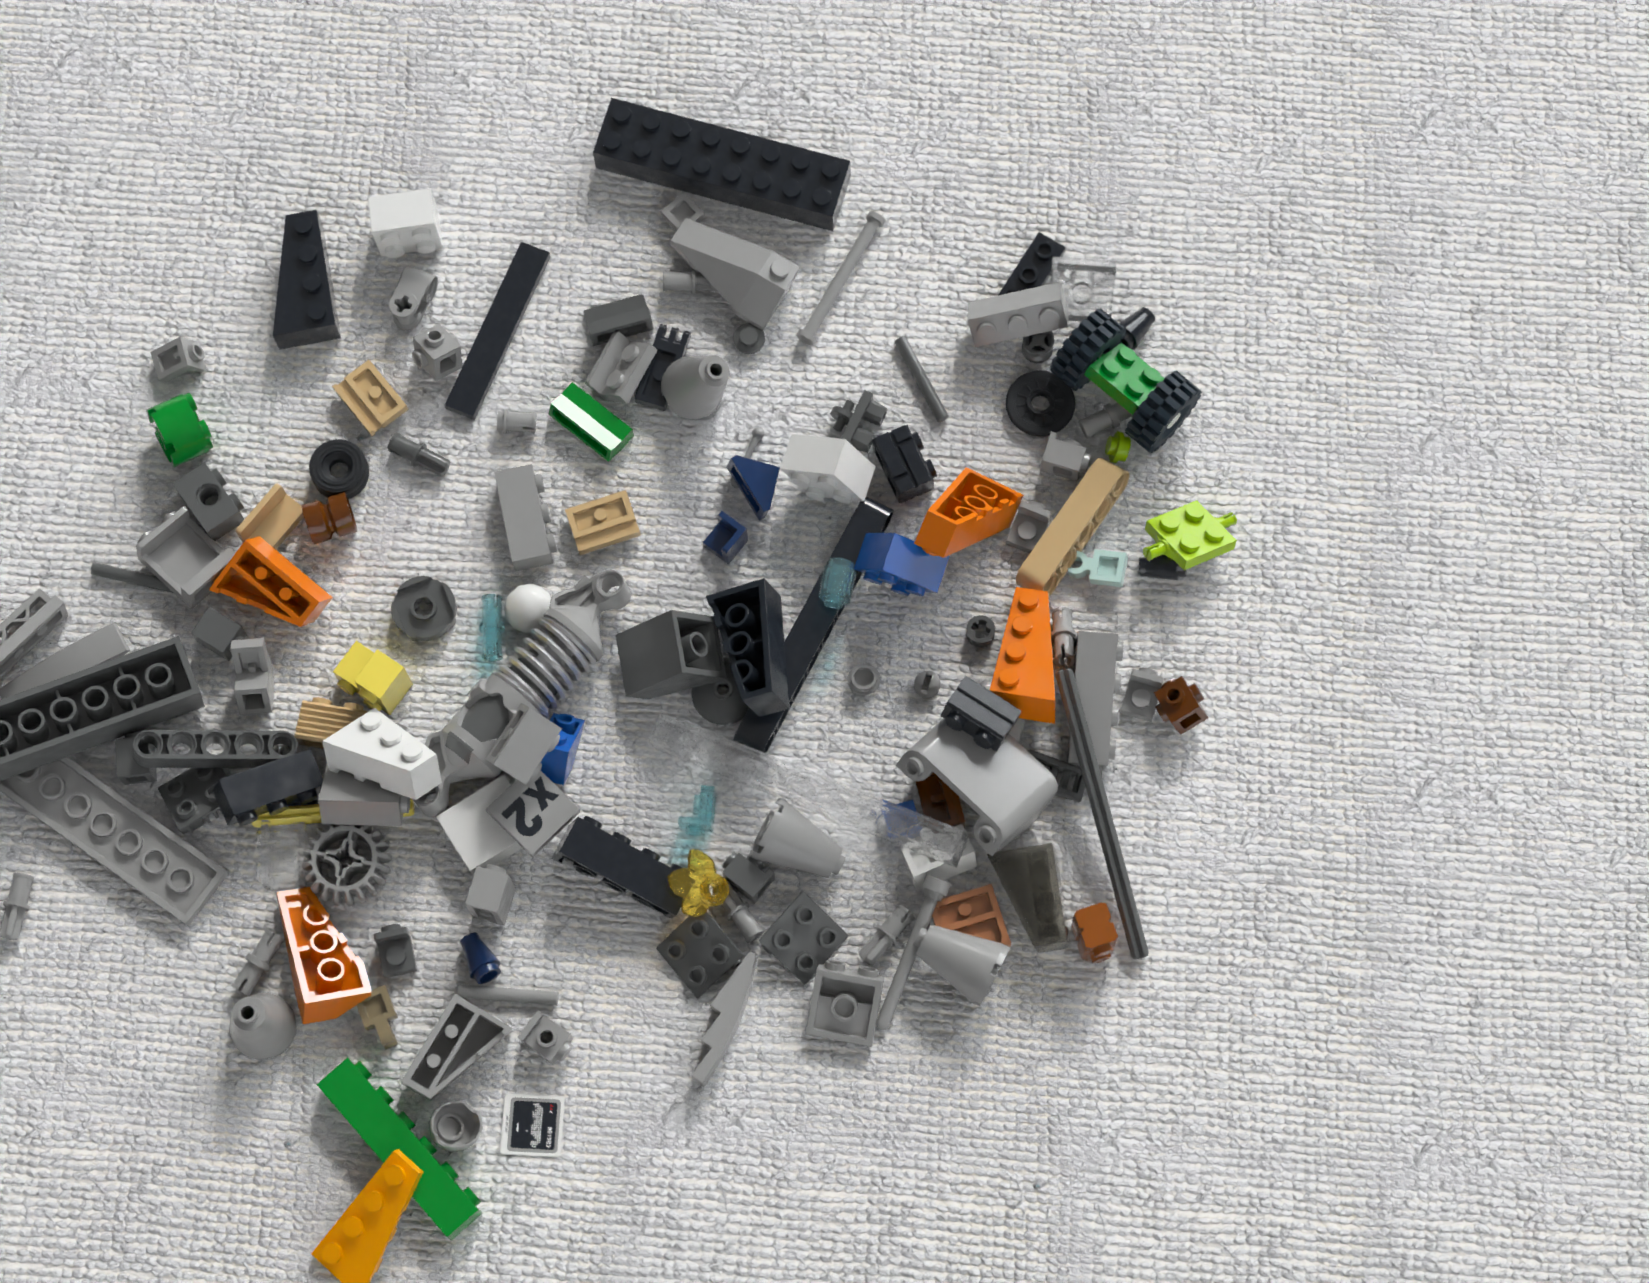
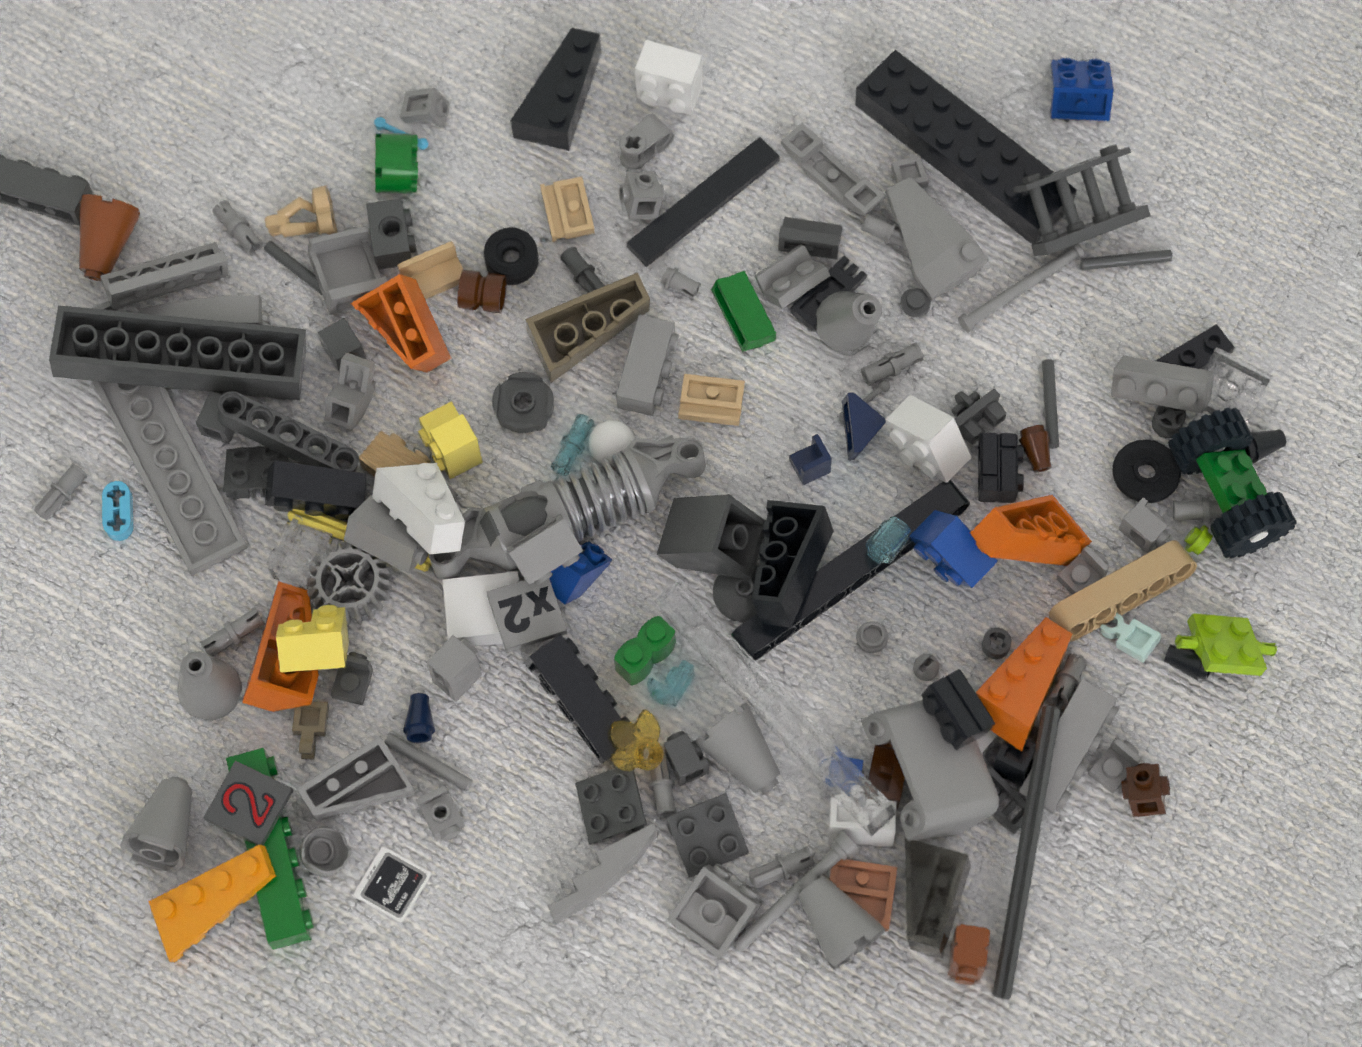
camera: 25 degrees right, 5 degrees down
(53, 563) = (237, 227): none -> light grey pin
(88, 893) = (124, 510): none -> medium azure beam
(126, 505) = (320, 205): none -> tan piece
(141, 394) = (380, 124): none -> medium azure hinge
(288, 1178) = (162, 827): none -> light grey cone
(348, 936) = (315, 643): none -> light yellow brick
(362, 1117) = (248, 804): none -> dark grey tile
(444, 507) = (584, 324): none -> dark tan wedge
(607, 248) = (830, 173): none -> light grey slope
(664, 785) = (638, 655): none -> green brick
(756, 409) = (892, 364): none -> light grey pin
(805, 56) = (1081, 89): none -> blue bracket
(888, 179) = (1102, 220): none -> dark grey fence
(925, 206) = (1126, 259): none -> dark grey bar
(929, 427) = (1036, 447): none -> reddish brown cone
(1052, 738) = (1013, 763): none -> black brick

